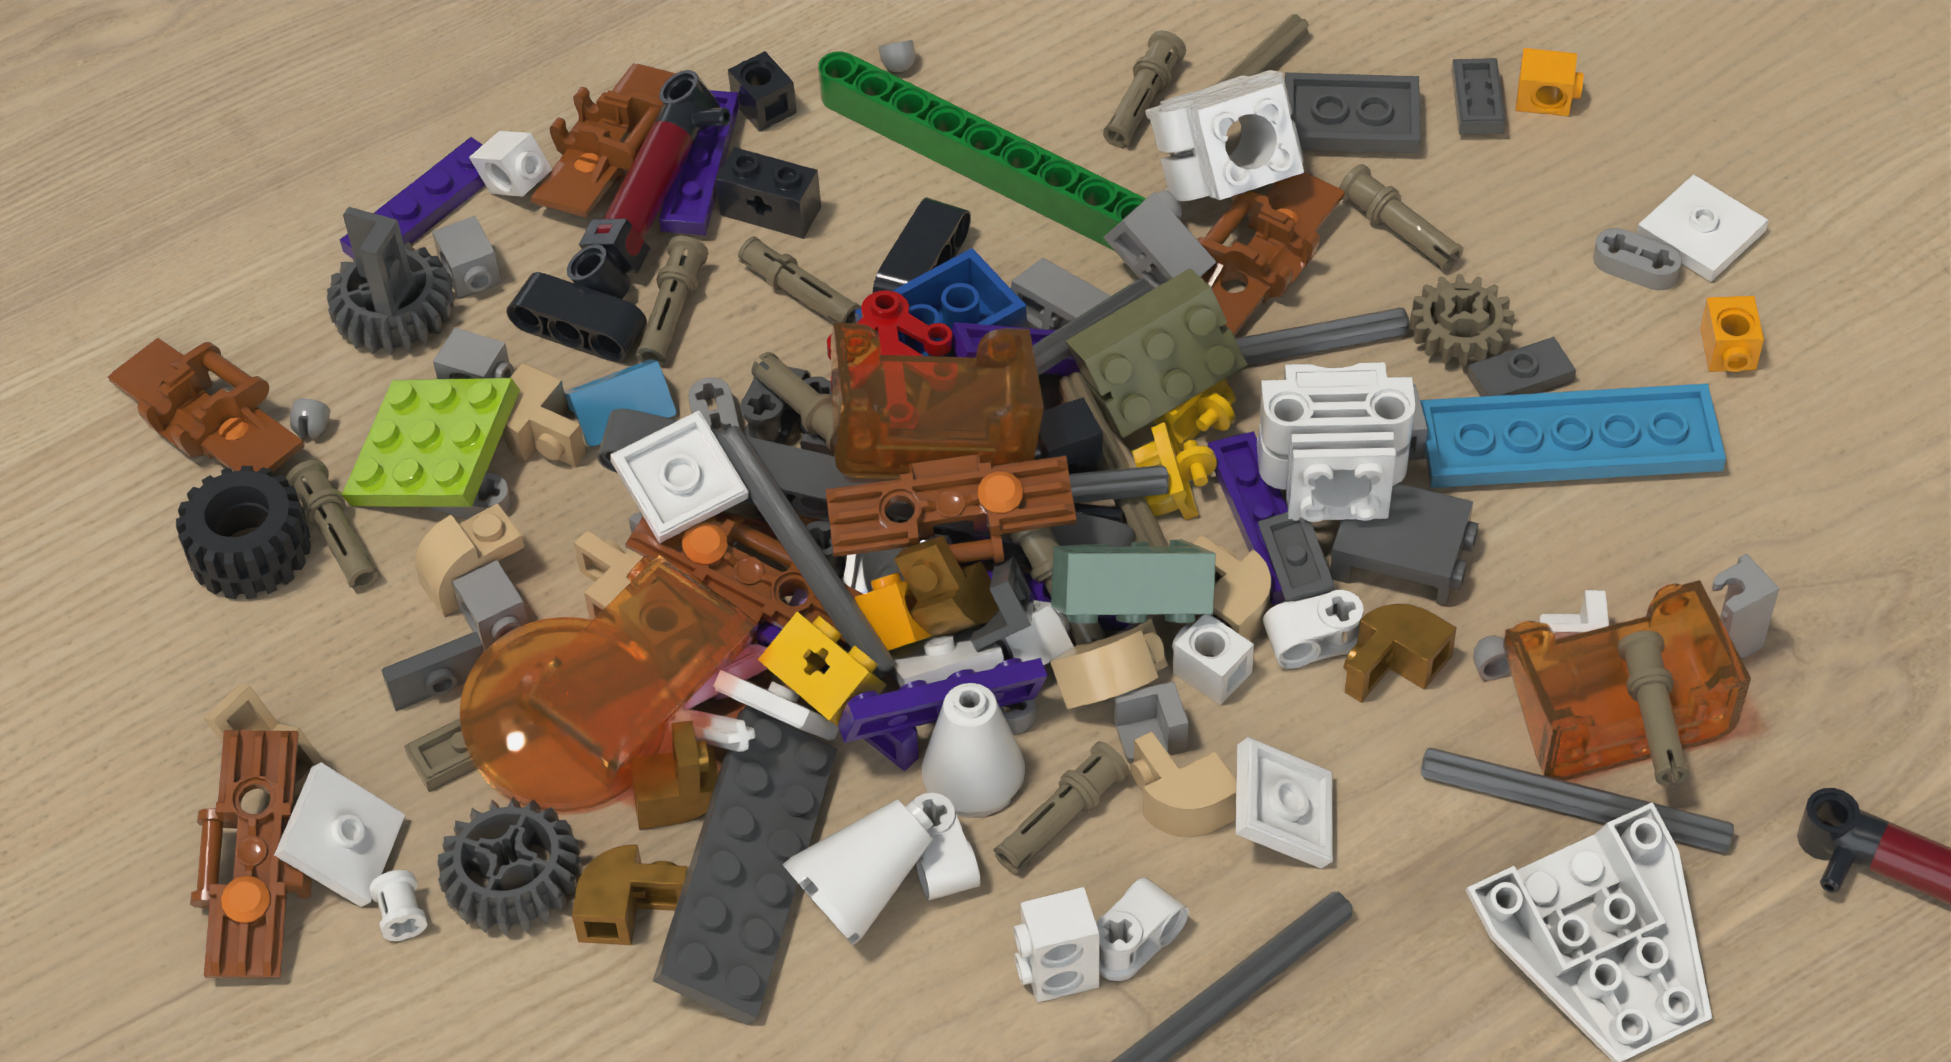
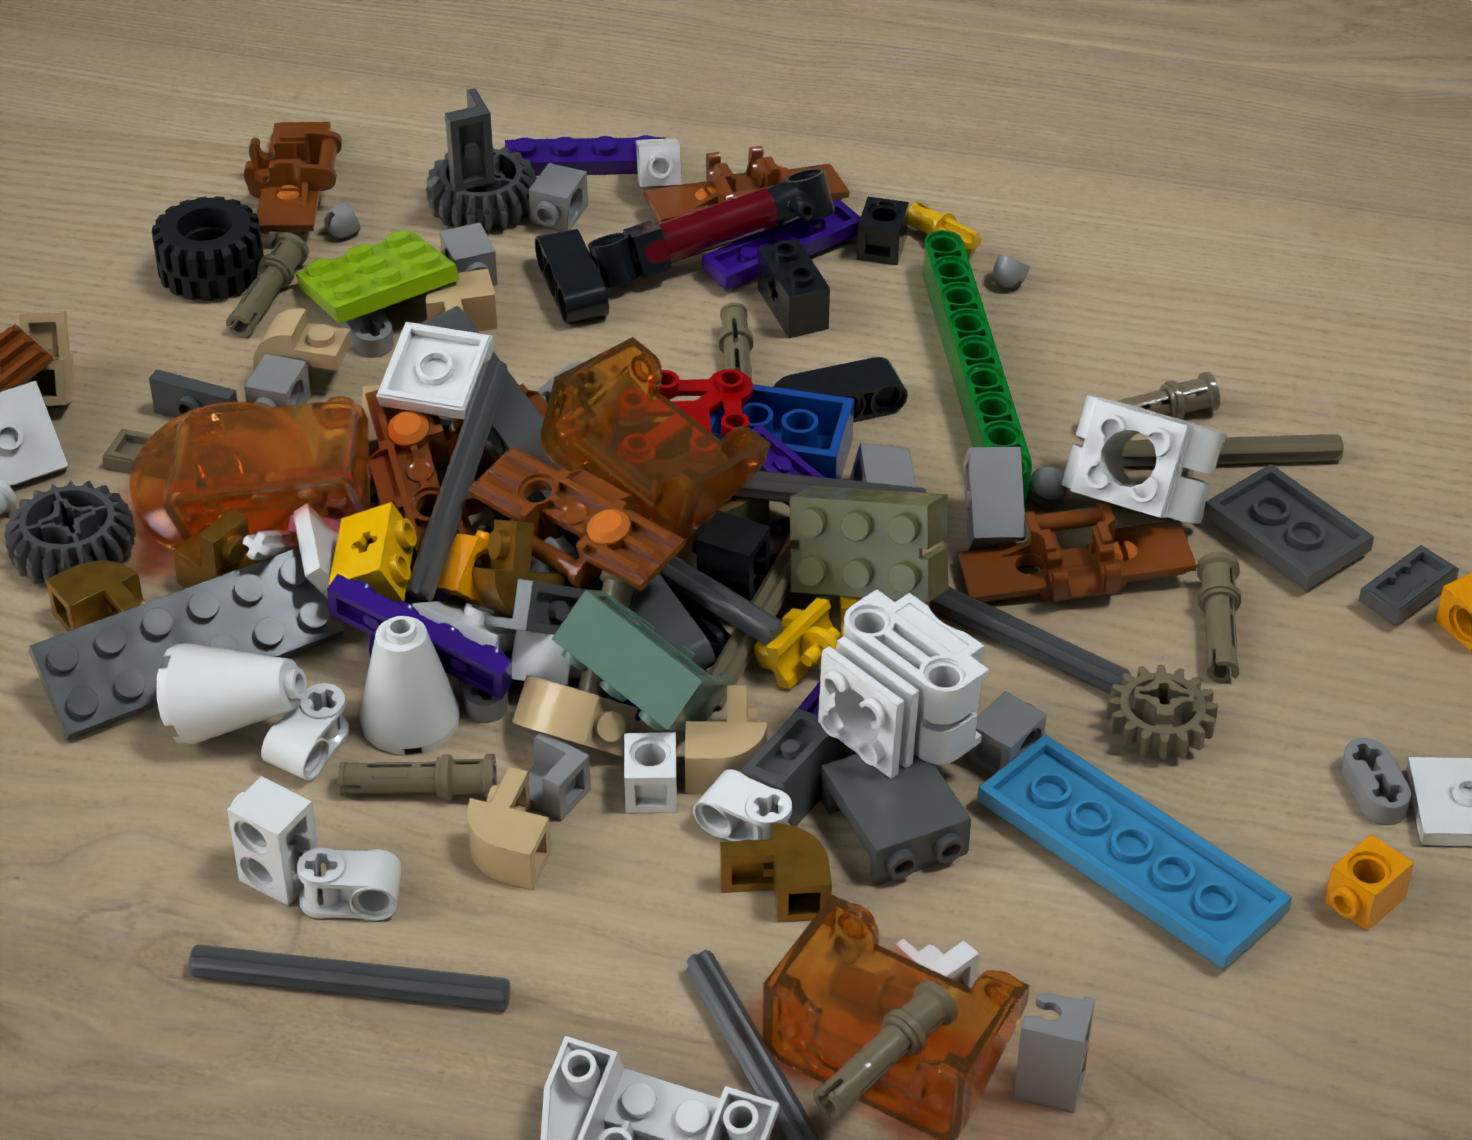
camera: 45 degrees right, 10 degrees down
(633, 388) = (528, 341): dark azure panel -> none
(680, 269) = (658, 300): dark tan pin -> none
(799, 53) = (929, 220): none -> yellow axle
(1284, 803) = (552, 892): white plate -> none
(1523, 370) = (1166, 783): dark grey plate -> none

